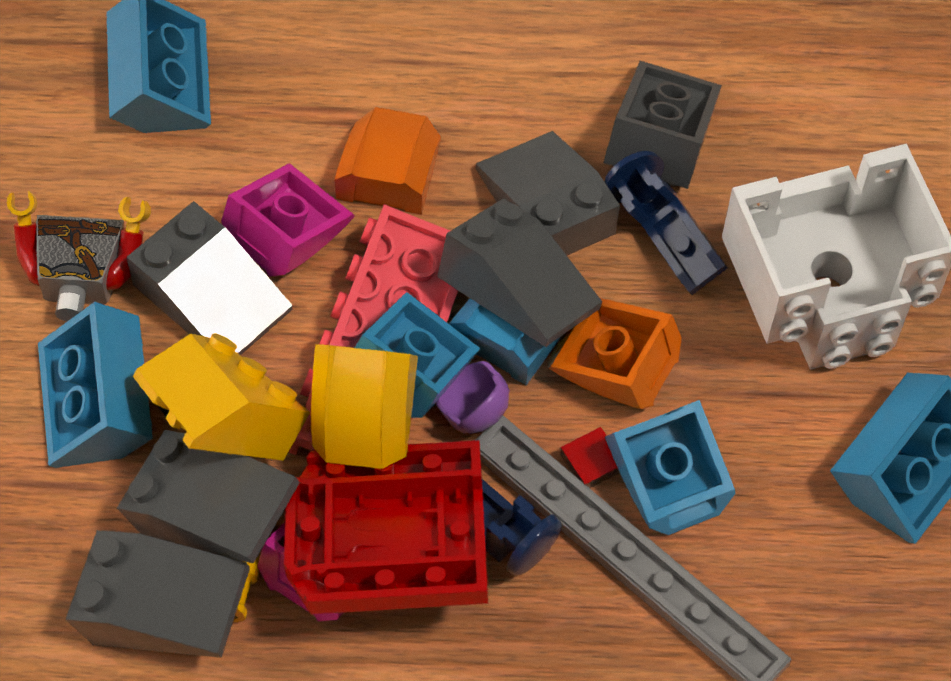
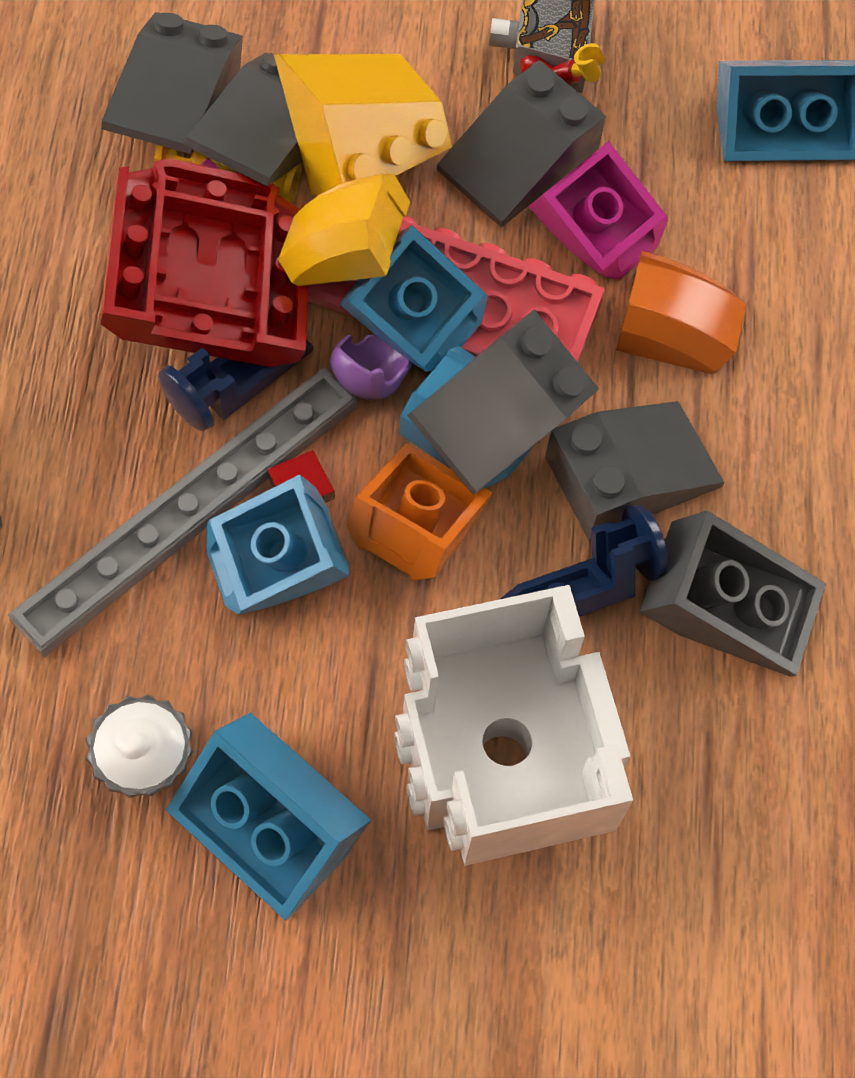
camera: 90 degrees right, 5 degrees up
(89, 388) = (436, 49): dark azure slope -> none
(874, 556) = (139, 746): none -> white piece

